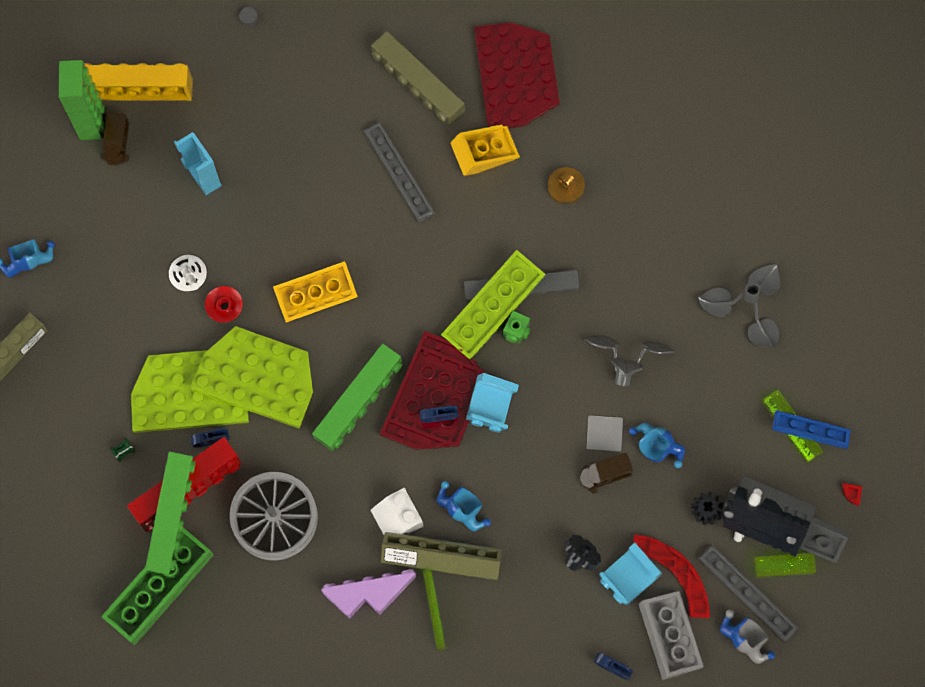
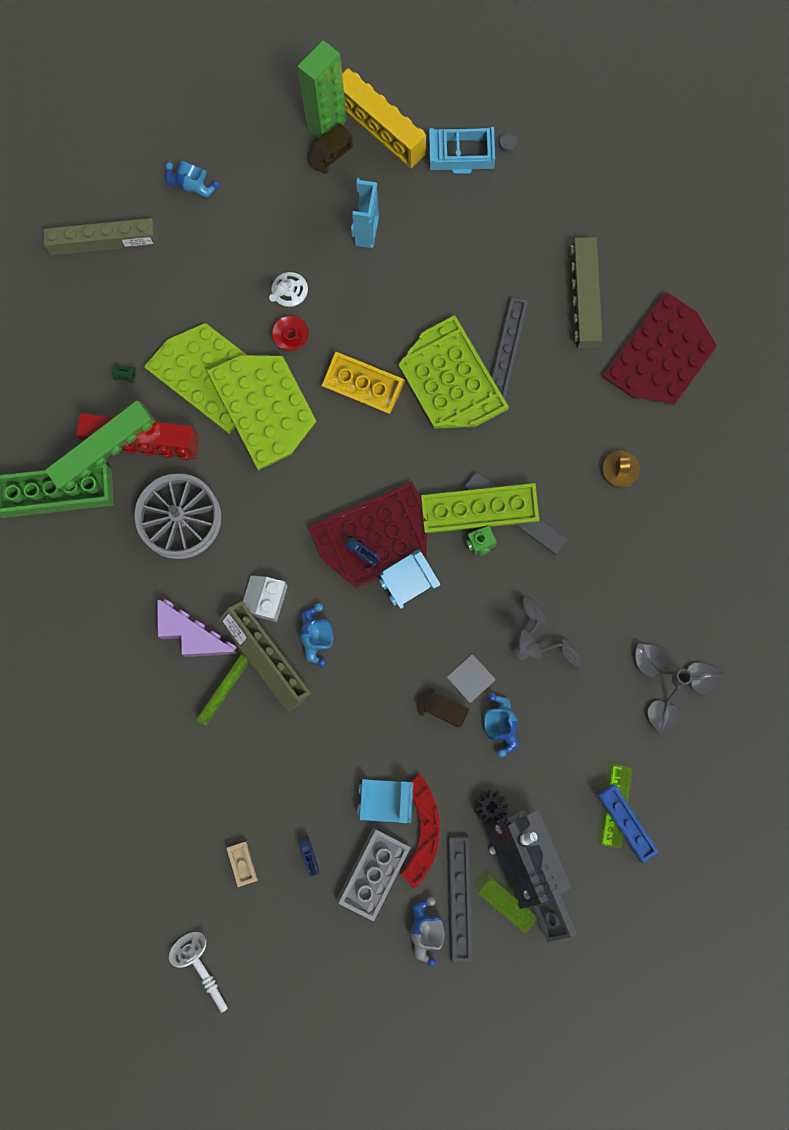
camera: 45 degrees right, 5 degrees up
(204, 67) = (460, 164): none -> medium azure piece
(209, 437) = (190, 419): dark blue piece -> none
(357, 397) = (317, 486): bright green brick -> none
(378, 229) = (451, 378): none -> lime plate
(484, 149) = (585, 387): yellow slope -> none
(581, 554) = (365, 751): black plant -> none
(852, 493) = (613, 900): red tile -> none

